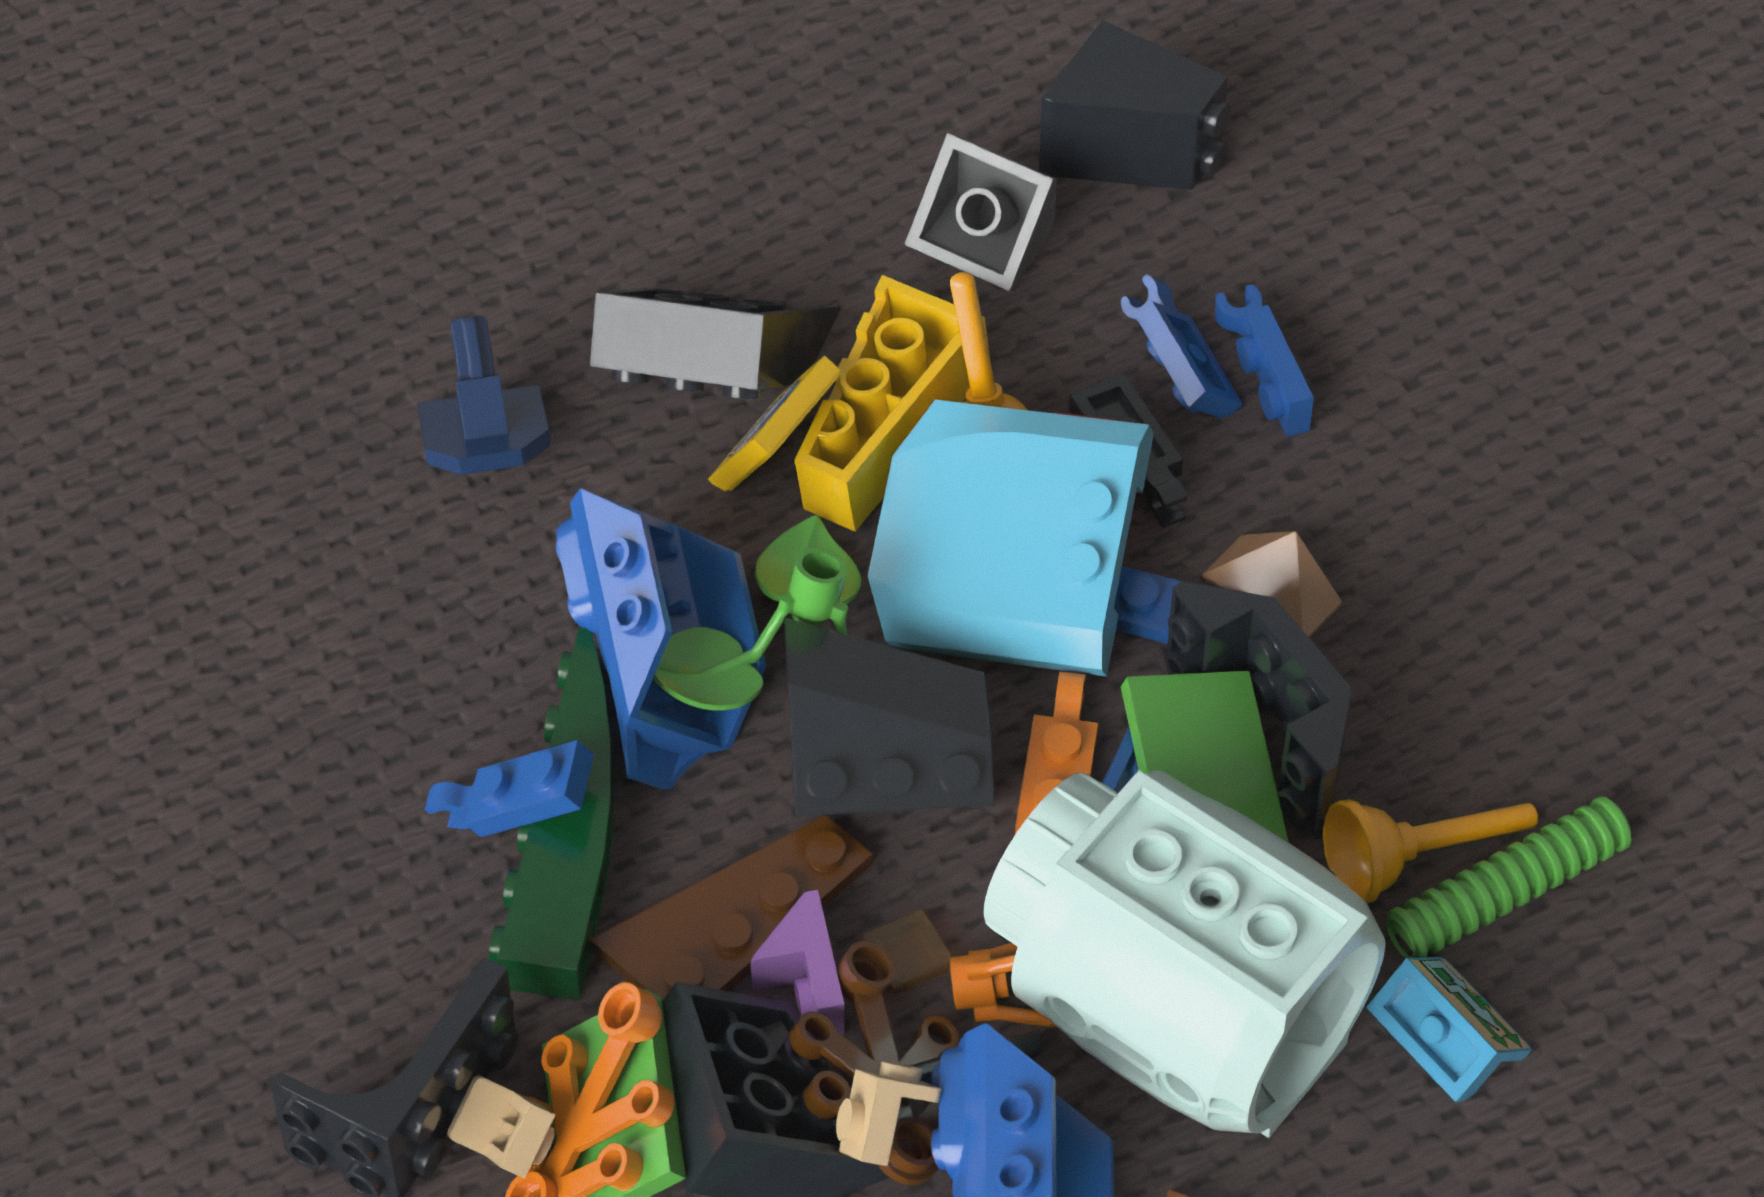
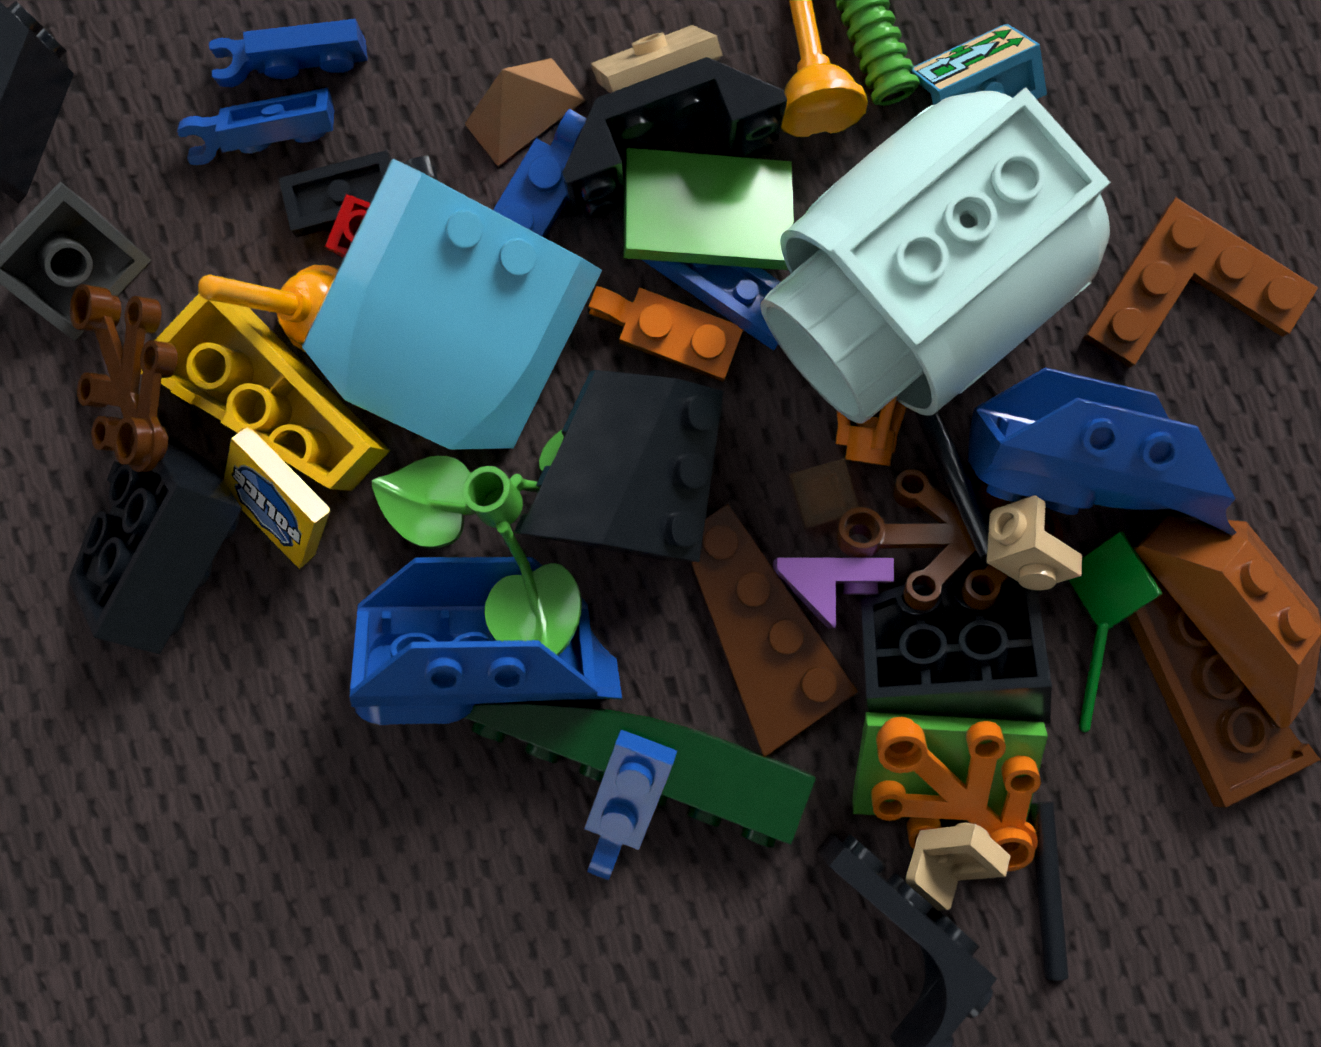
camera: 80 degrees left, 30 degrees up
(483, 424) = (201, 765): dark blue piece -> none
(933, 259) = (137, 437): none -> reddish brown plant
(1363, 675) = (655, 56): none -> tan plate

